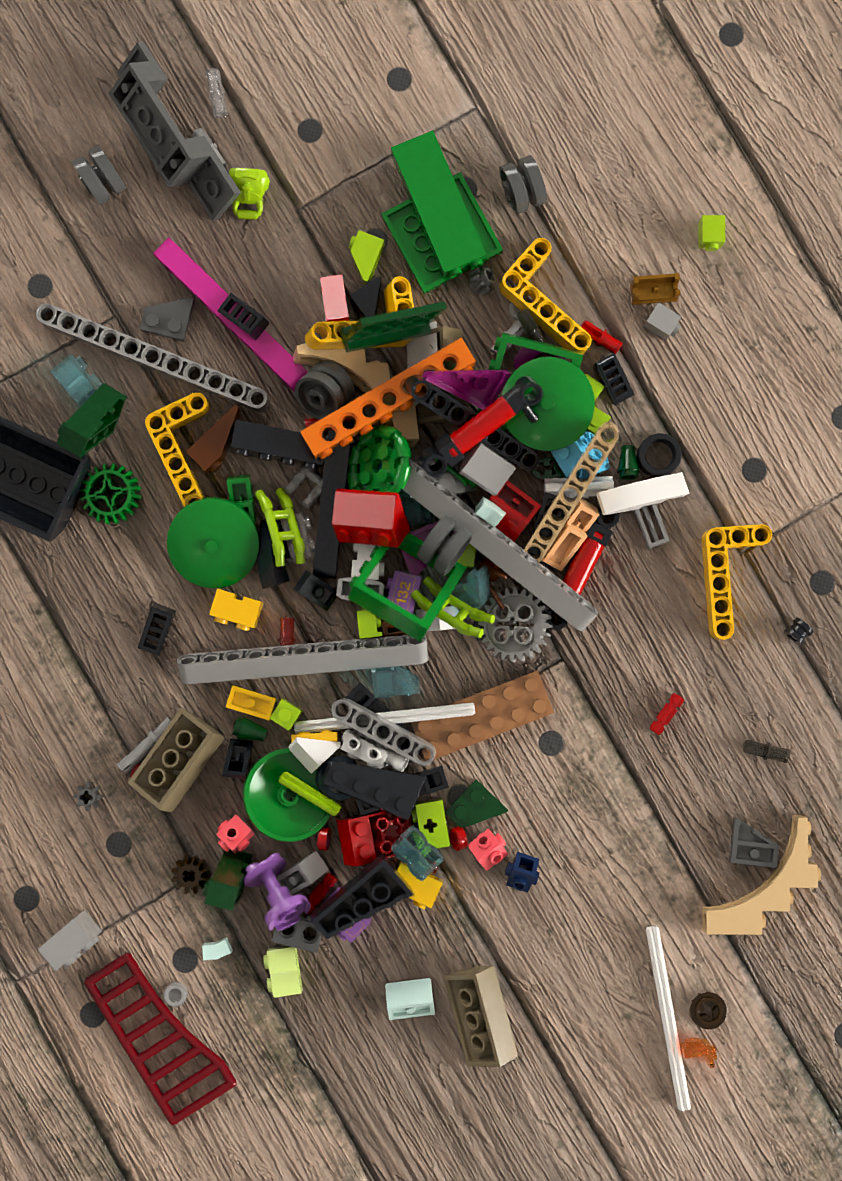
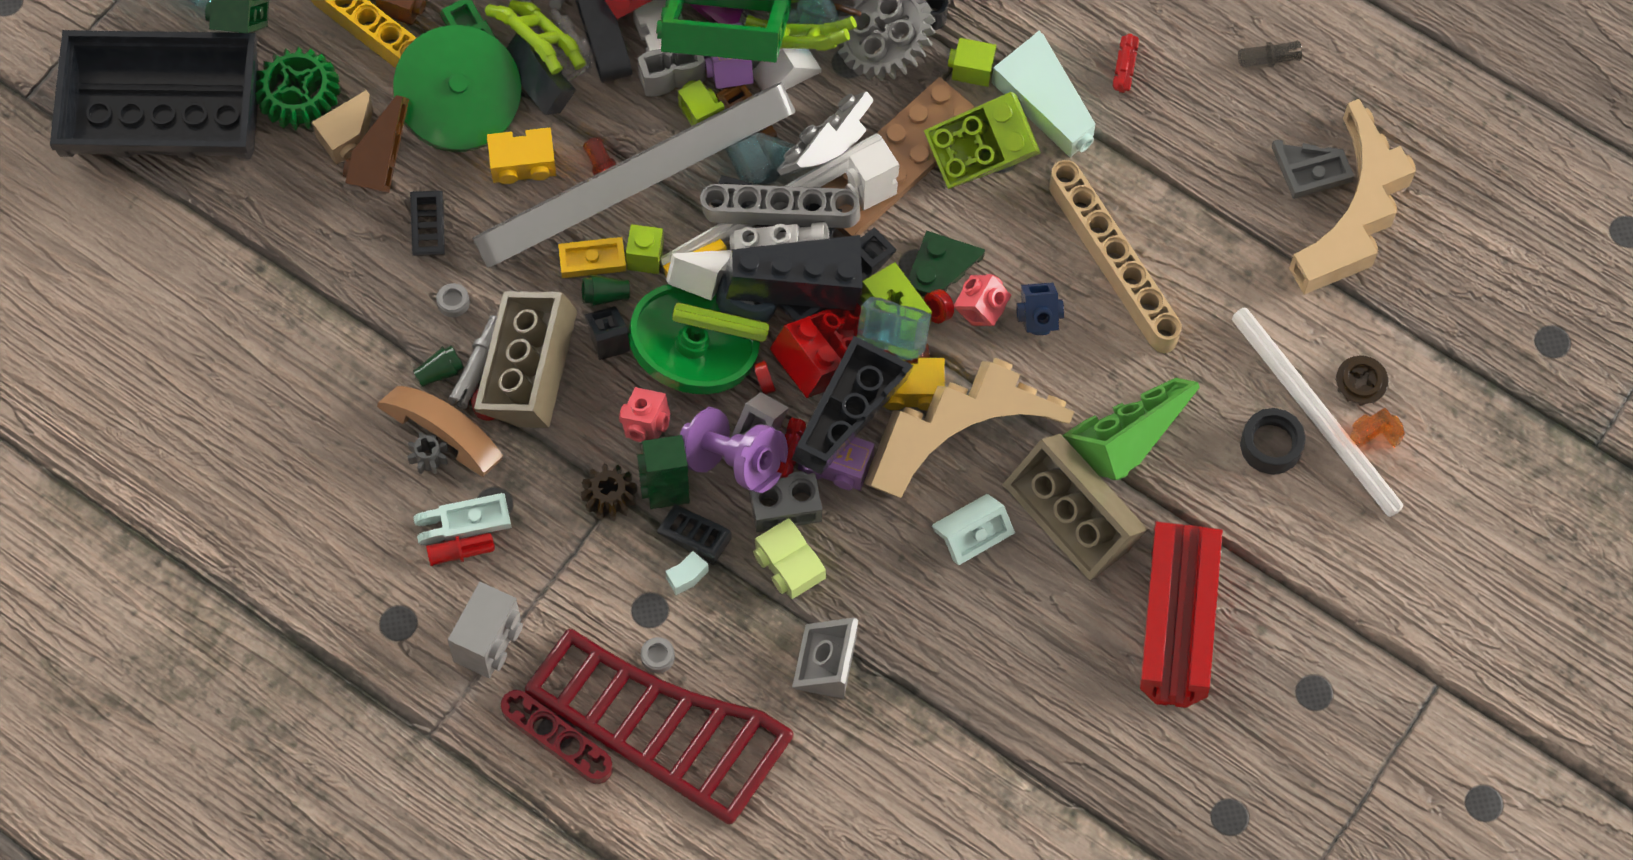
camera: 25 degrees left, 20 degrees down
(82, 869) = (460, 549): none -> red axle
(86, 1022) = (558, 734): none -> dark red beam
(94, 851) = (464, 519): none -> light aqua hinge
(105, 781) = (447, 423): none -> medium nougat slope
(122, 737) = (441, 365): none -> dark green cone
(130, 538) = (344, 127): none -> tan slope
(136, 574) = (376, 154): none -> reddish brown slope
(150, 691) = (452, 300): none -> light grey tile
(231, 936) = (709, 554): none -> black slope
(277, 1047) = (826, 657): none -> light grey slope
(316, 590) = (614, 93): black slope -> none
(429, 925) = (910, 439): none -> tan arch
(433, 695) = (829, 139): none -> slope
(452, 738) = (873, 174): none -> white brick
(515, 1114) = (1181, 614): none -> red piece
(539, 979) = (1126, 436): none -> bright green wedge
(543, 735) = (982, 140): none -> lime slope
(564, 670) = (972, 62): none -> lime brick
(594, 864) = (1119, 269): none -> tan beam
(600, 712) = (1046, 94): none -> light aqua slope
(639, 1042) = (1281, 419): none -> black tyre

